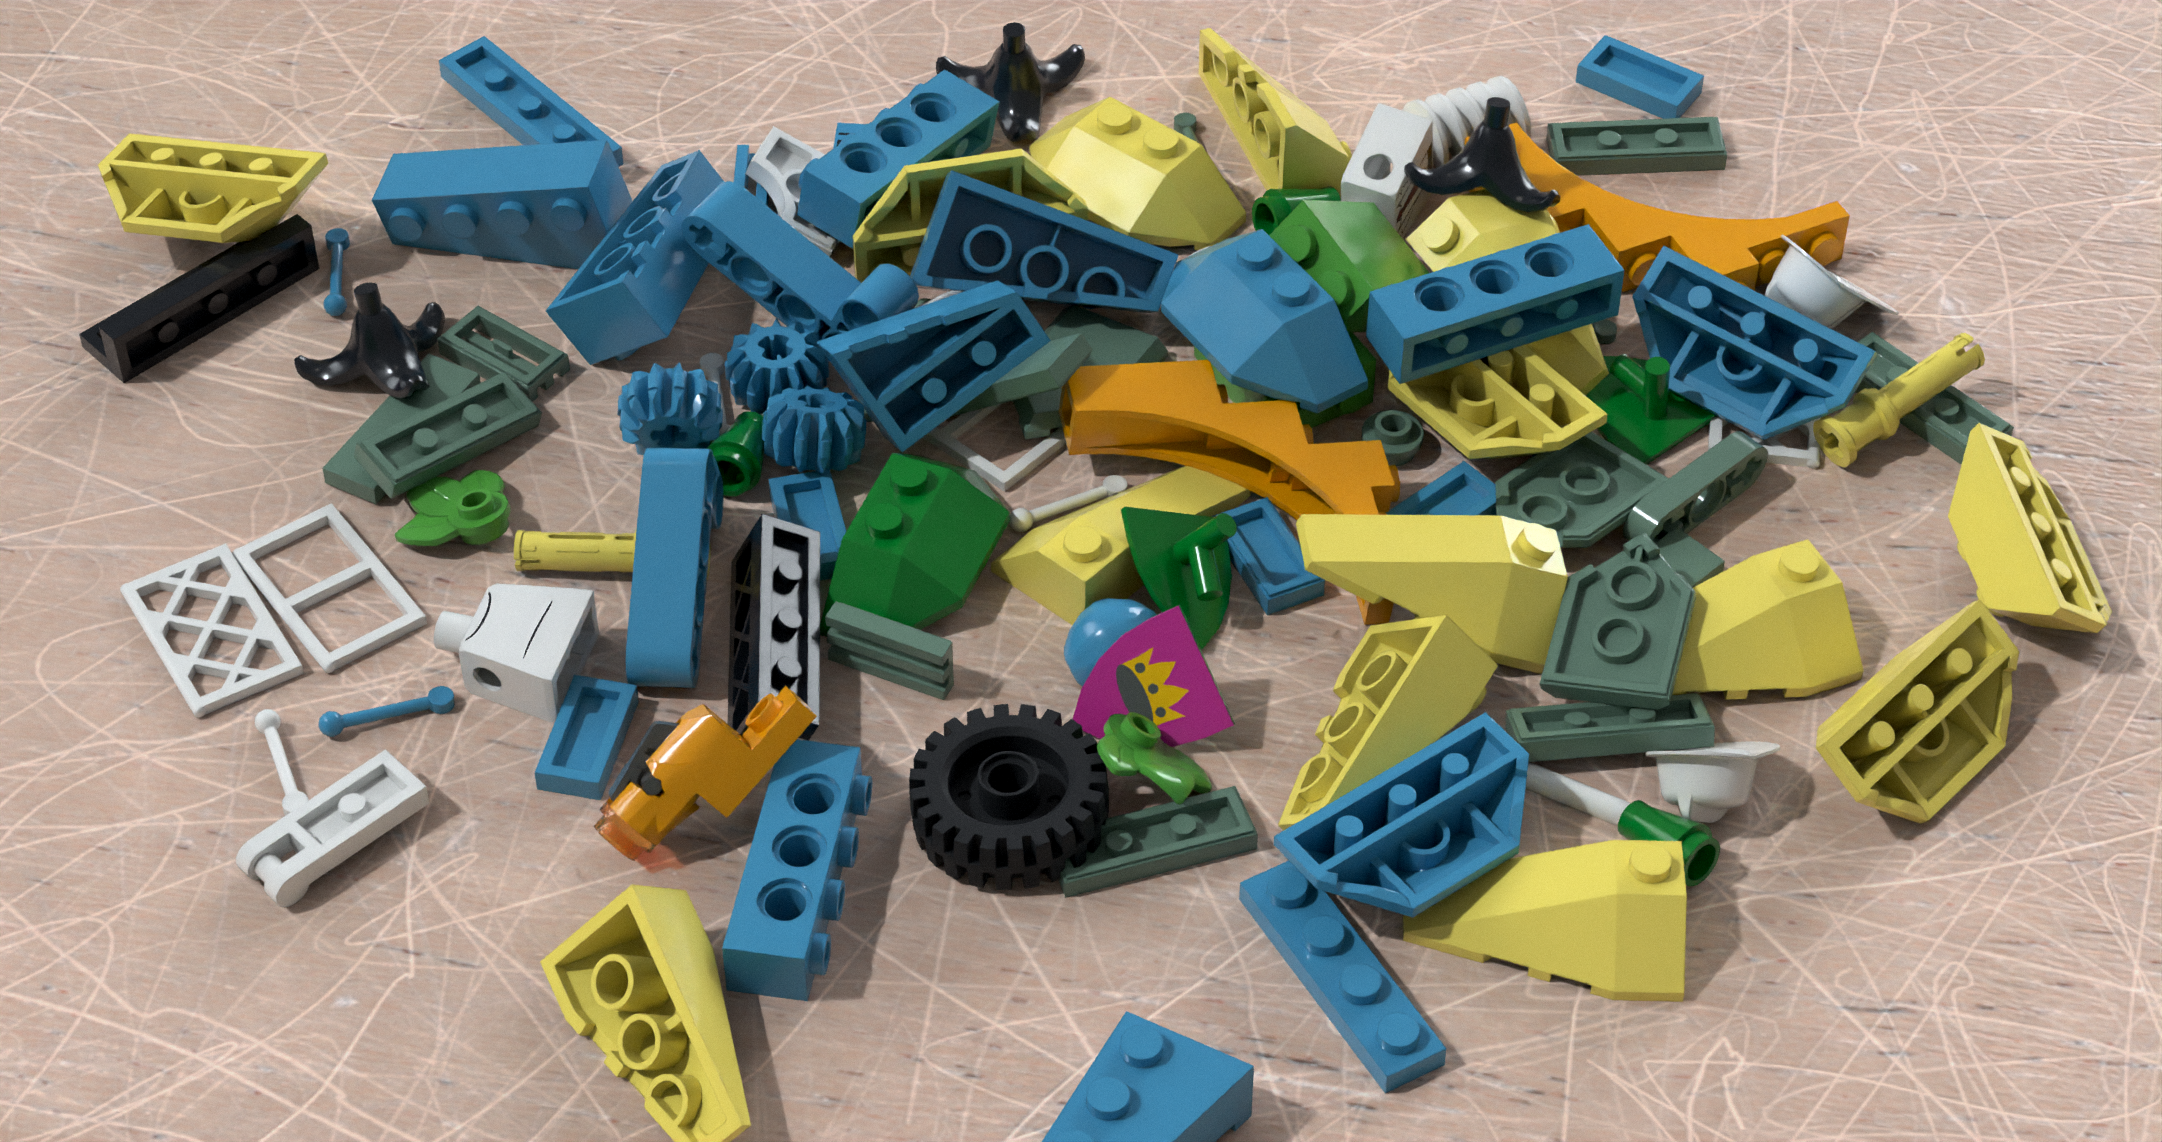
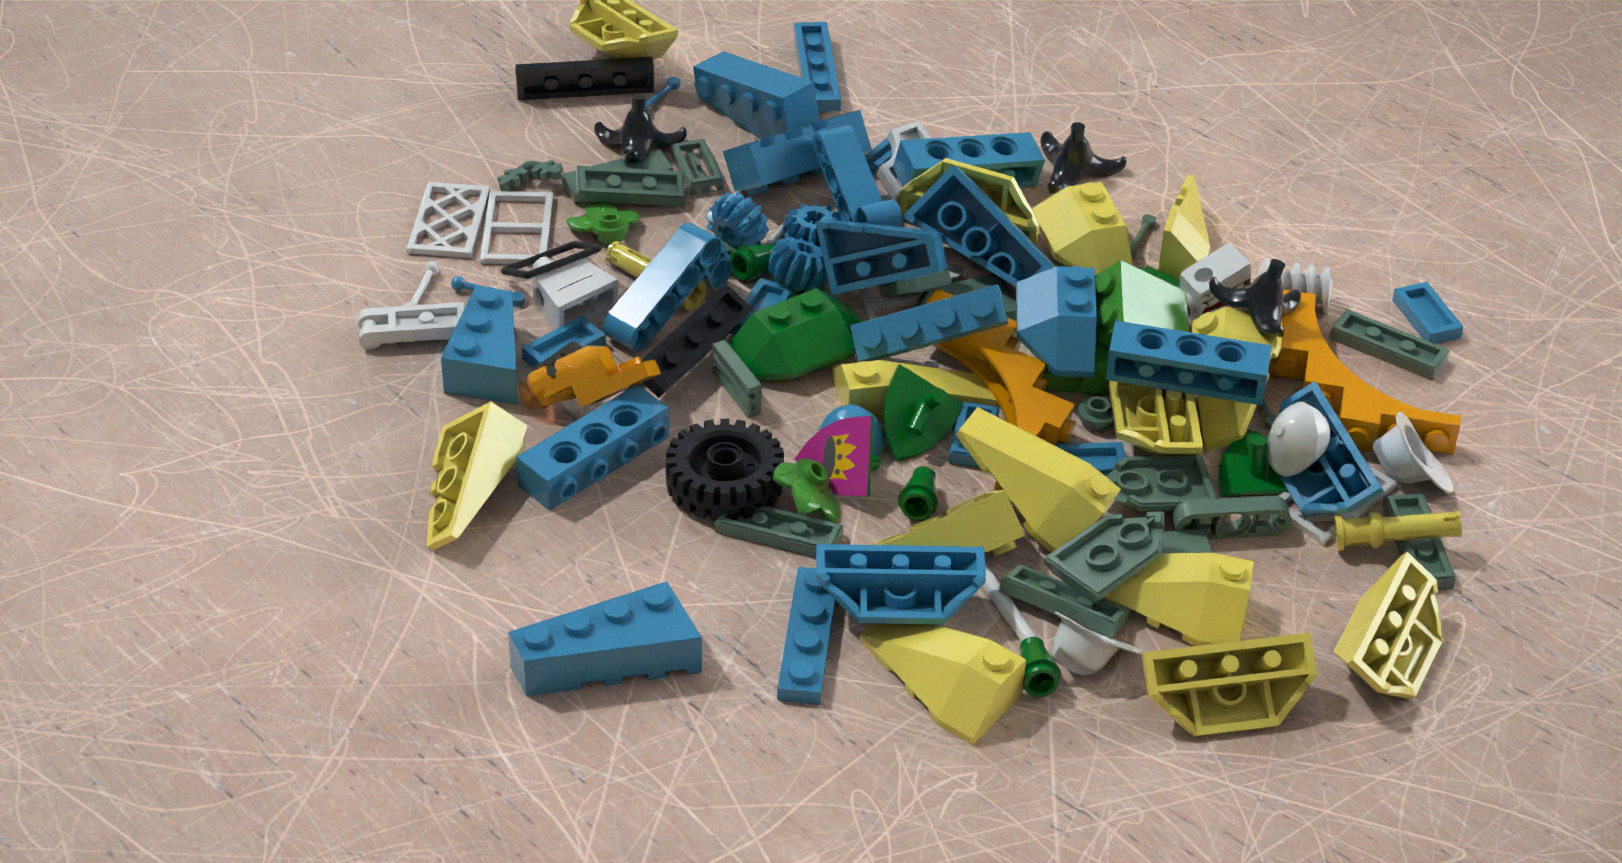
camera: 35 degrees right, 5 degrees down
(251, 506) = (530, 168): none -> sand green animal
(390, 661) = (588, 250): none -> black piece
(497, 804) = (482, 349): none -> dark azure wedge
(1104, 427) = (929, 324): none -> dark azure plate
(1292, 683) = (919, 495): none -> green cone
(1705, 338) = (1297, 439): none -> white hat

